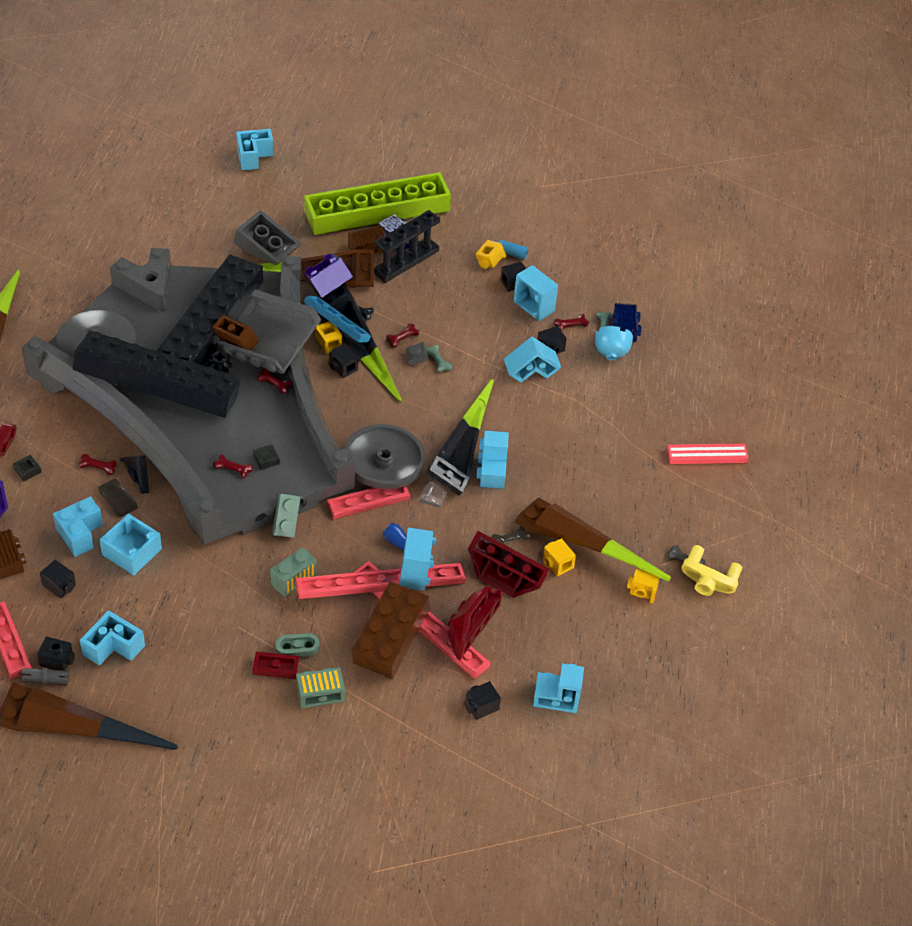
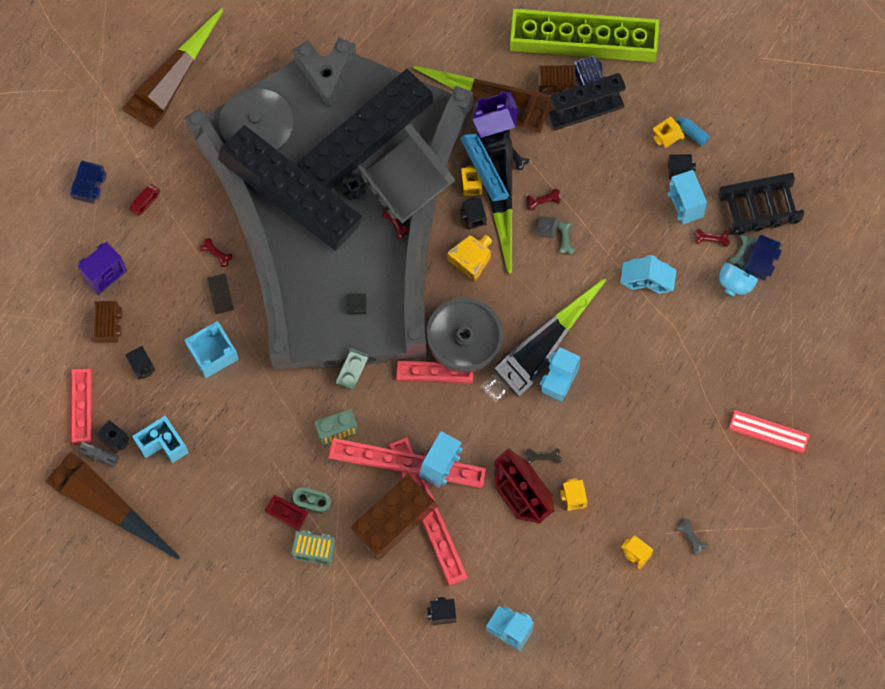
camera: 30 degrees right, 20 degrees up
(27, 468) = (155, 235): pearl dark grey tile -> none
(76, 523) = (172, 311): medium azure brick -> none
(137, 471) = (245, 274): black tile -> none
(222, 462) = (330, 310): dark red piece -> none
(235, 333) = (375, 166): reddish brown brick -> none
(265, 239) = (459, 48): dark grey slope -> none
(356, 395) = (471, 256): none -> yellow torso
(395, 535) = (442, 421): blue cone -> none
(472, 618) = (467, 531): dark red wedge -> none
(553, 339) = (679, 256): black brick -> none
(558, 523) = (590, 461): reddish brown plate -> none
(599, 270) = (764, 186): none -> black fence
(709, 579) = (698, 567): light yellow connector -> none

